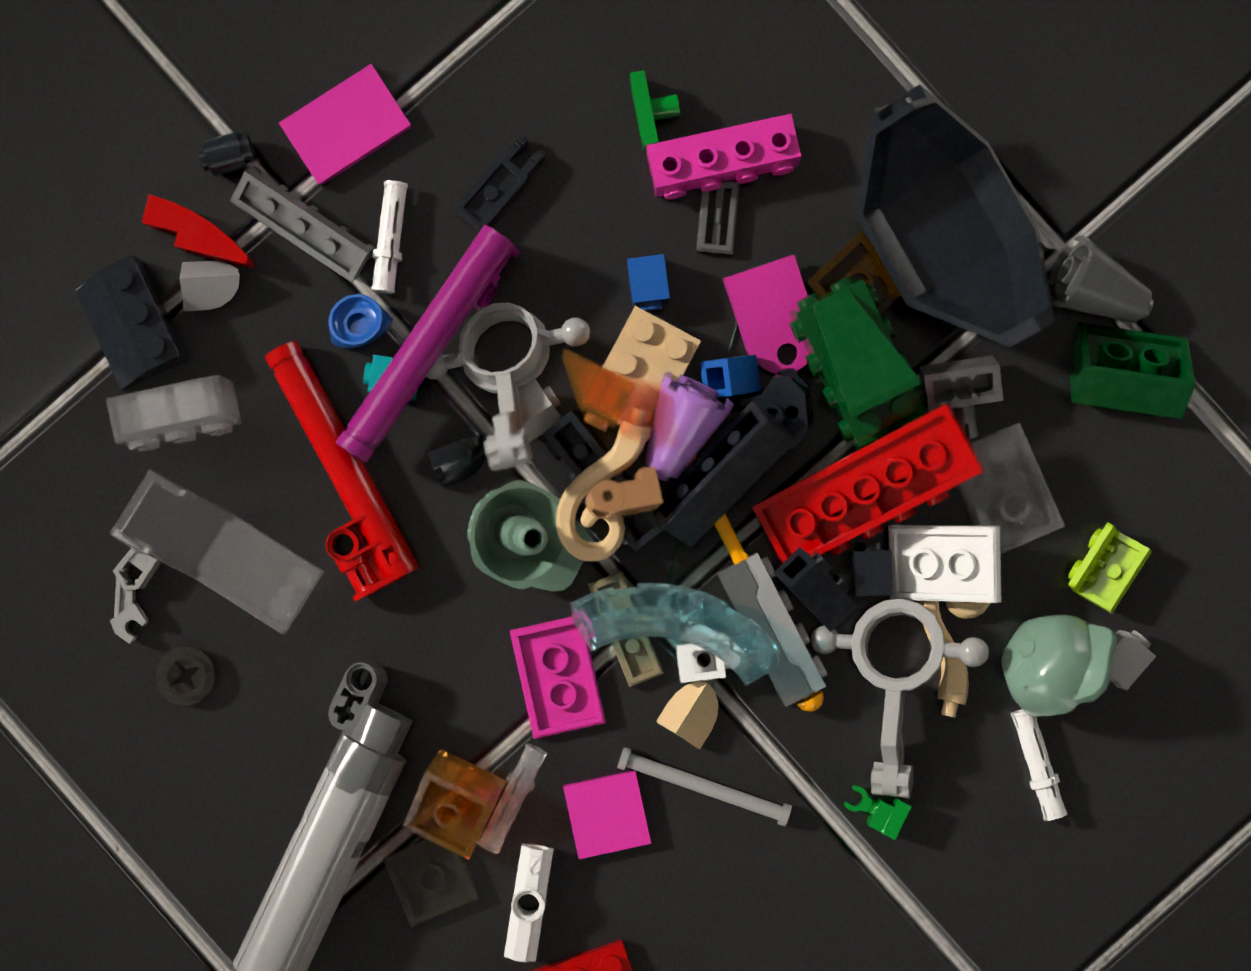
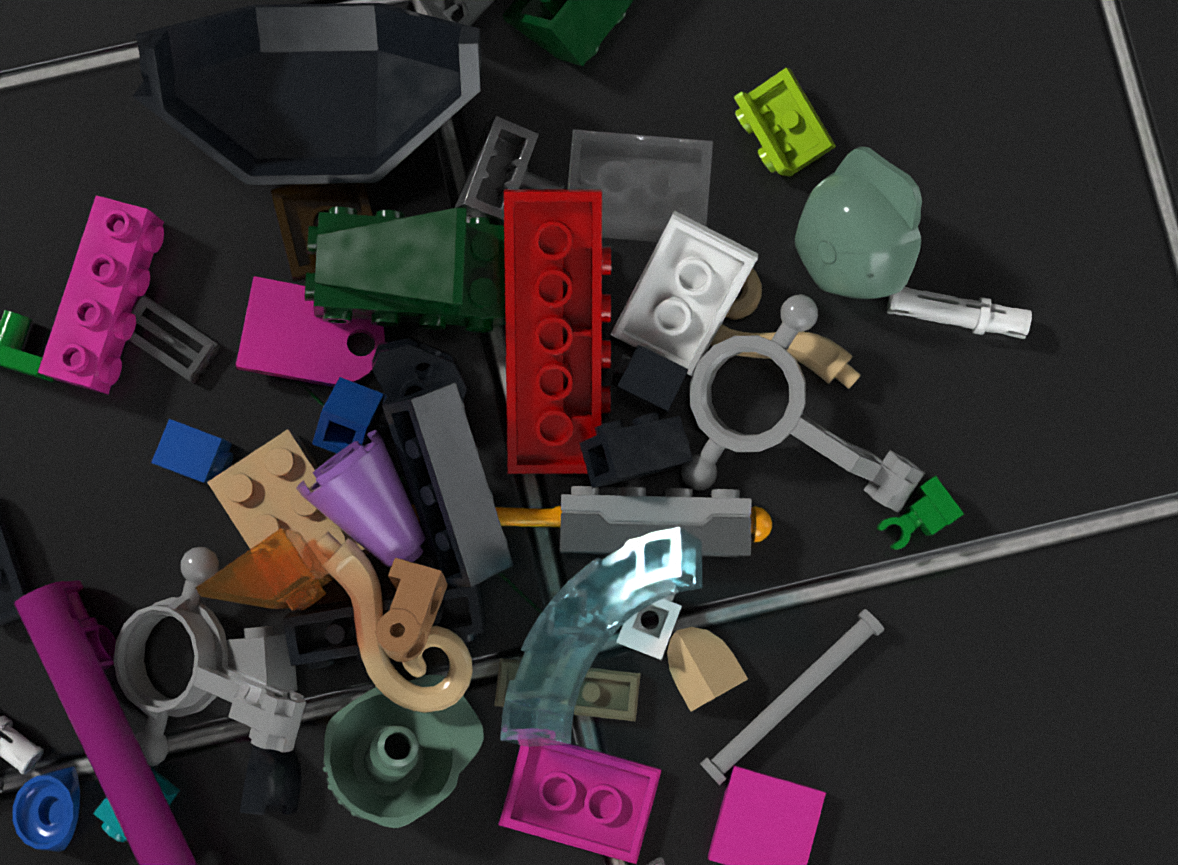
camera: 65 degrees left, 5 degrees down
(1130, 658) = (897, 147): light grey brick -> none

